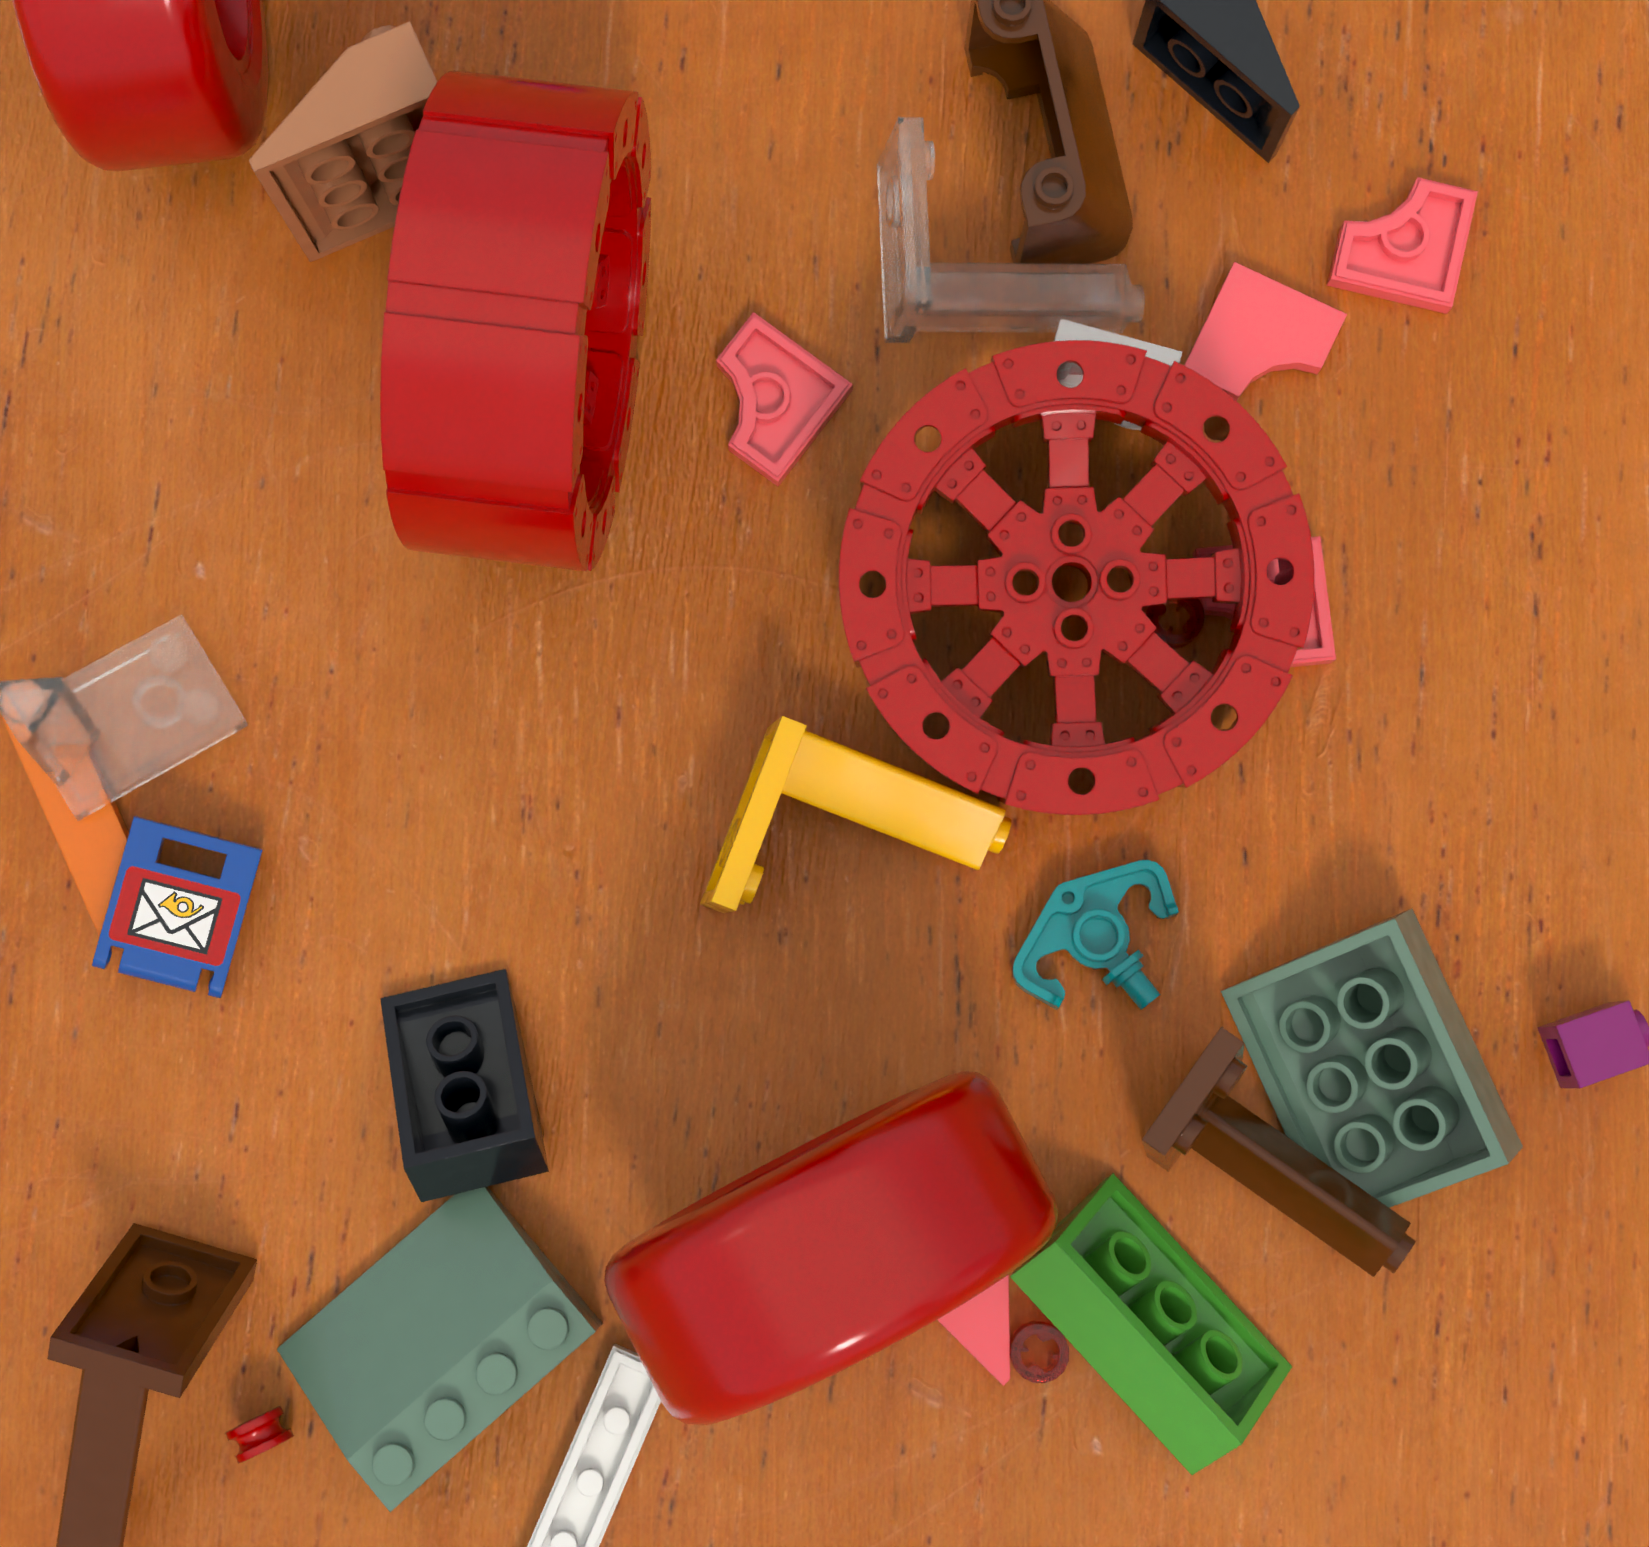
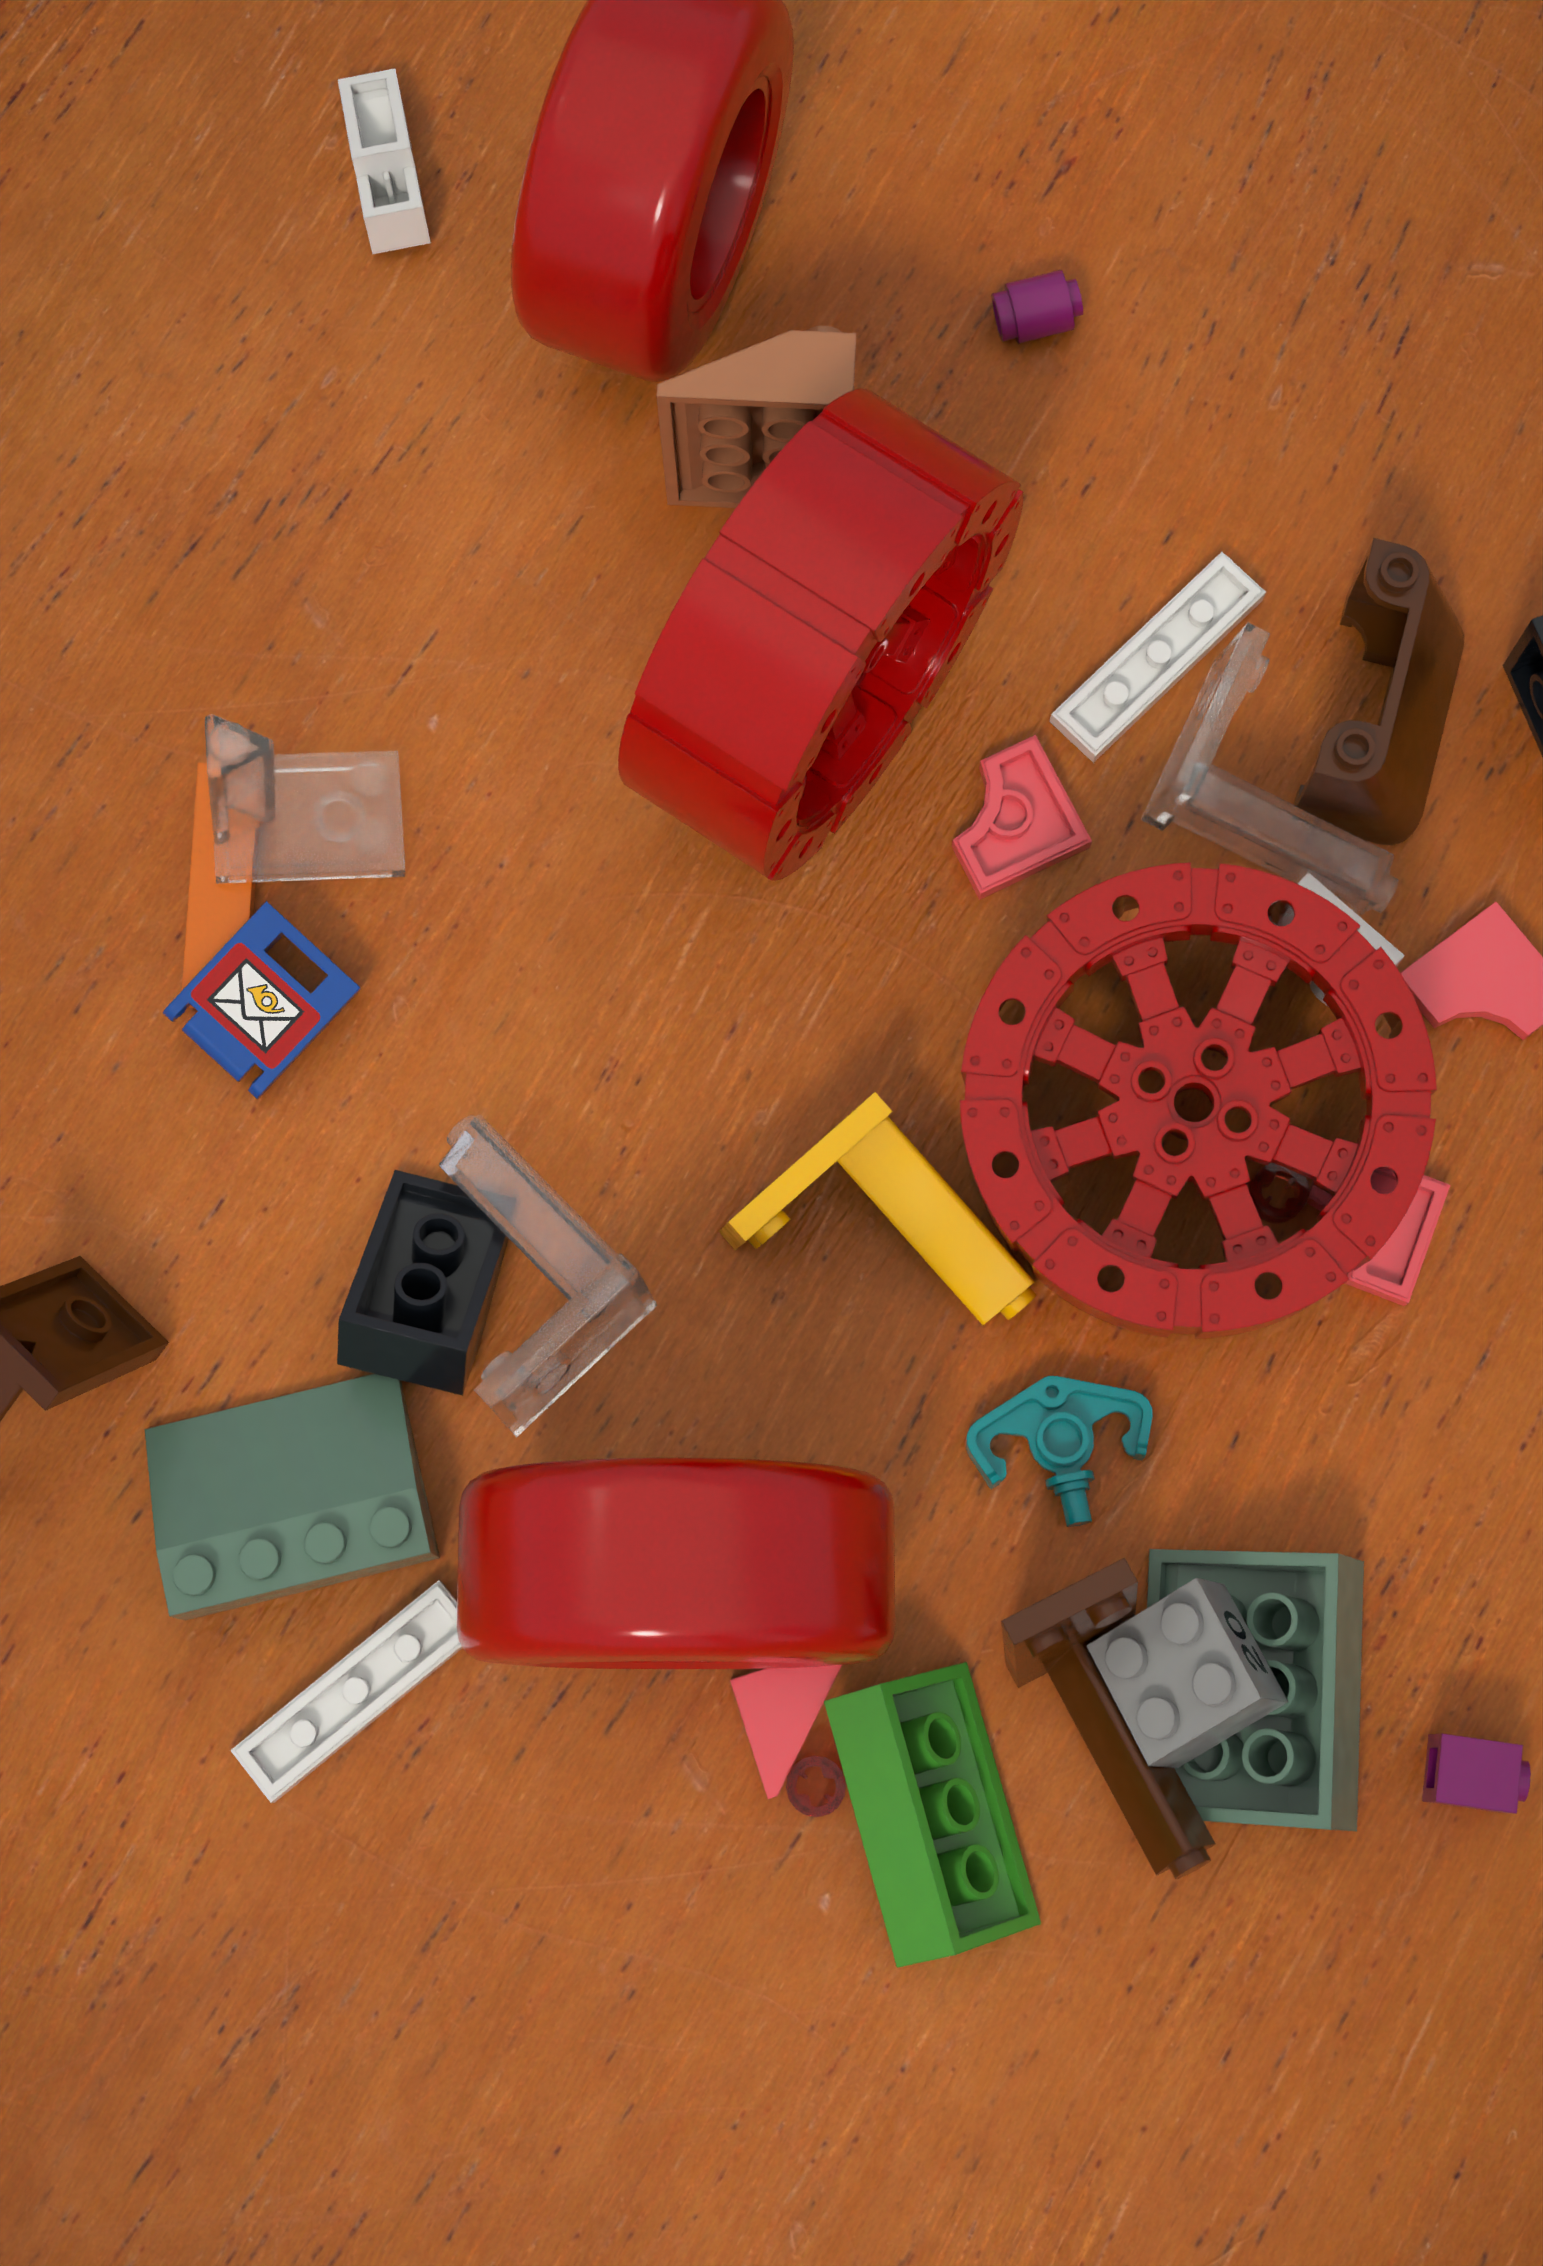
camera: 30 degrees right, 5 degrees down
(259, 1434) = (91, 1494): red bush -> none
(573, 995) = (601, 1286): none -> clear piece
(825, 186) = (1157, 657): none -> white tile
(1314, 1090) = (1186, 1673): none -> light grey brick

